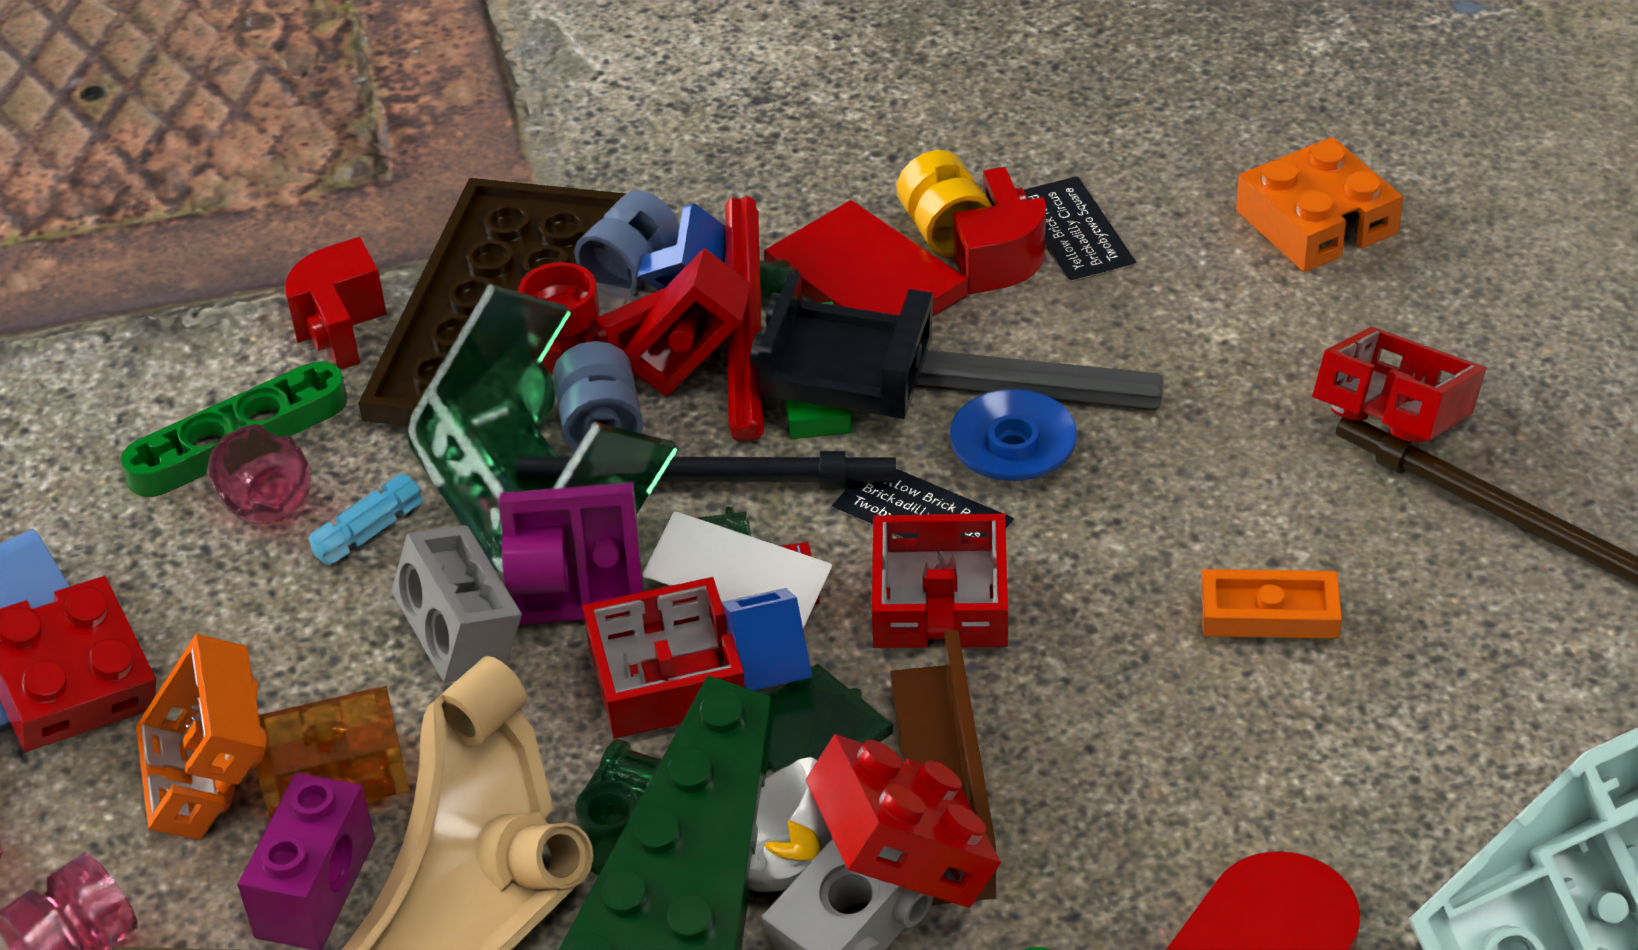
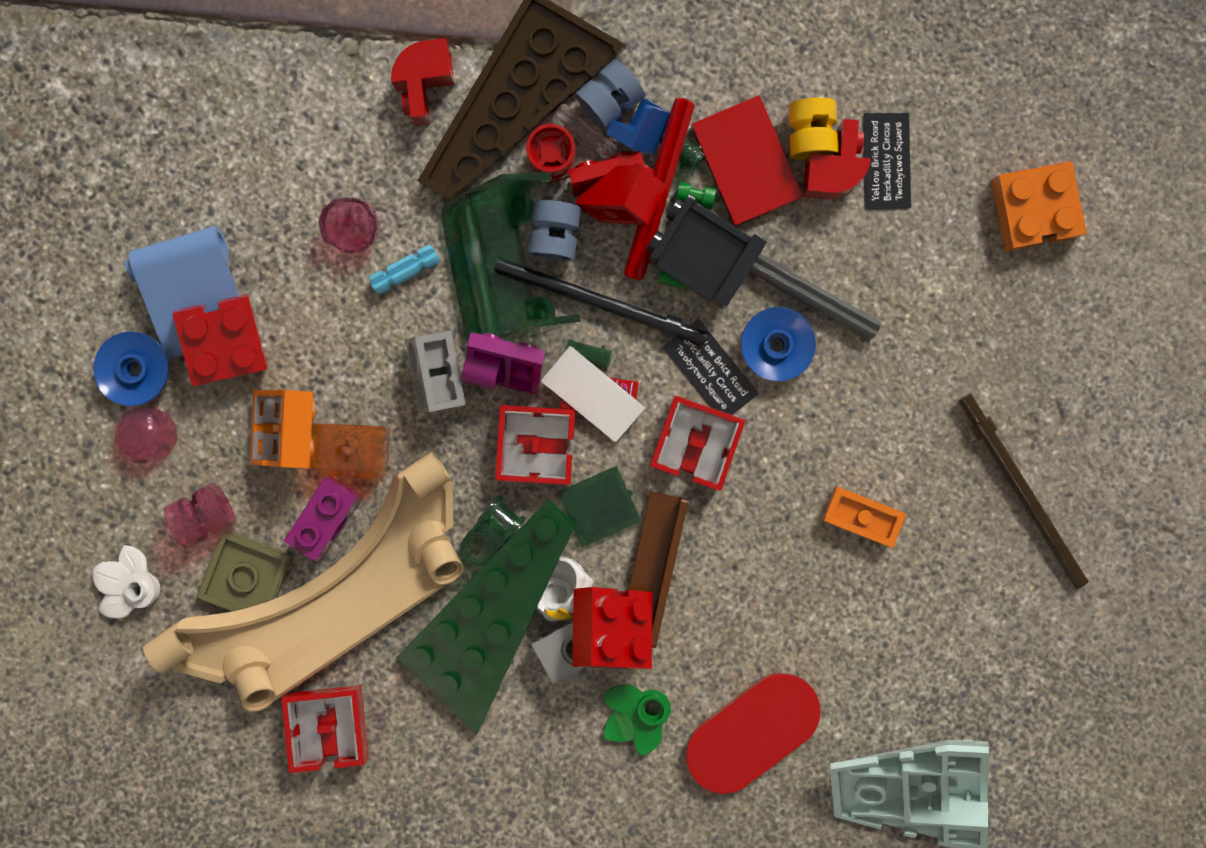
camera: 15 degrees right, 45 degrees up
(162, 446) = (344, 157): green beam -> none
(768, 638) = (591, 456): blue panel -> none
(1402, 396) = (1005, 394): red piece -> none

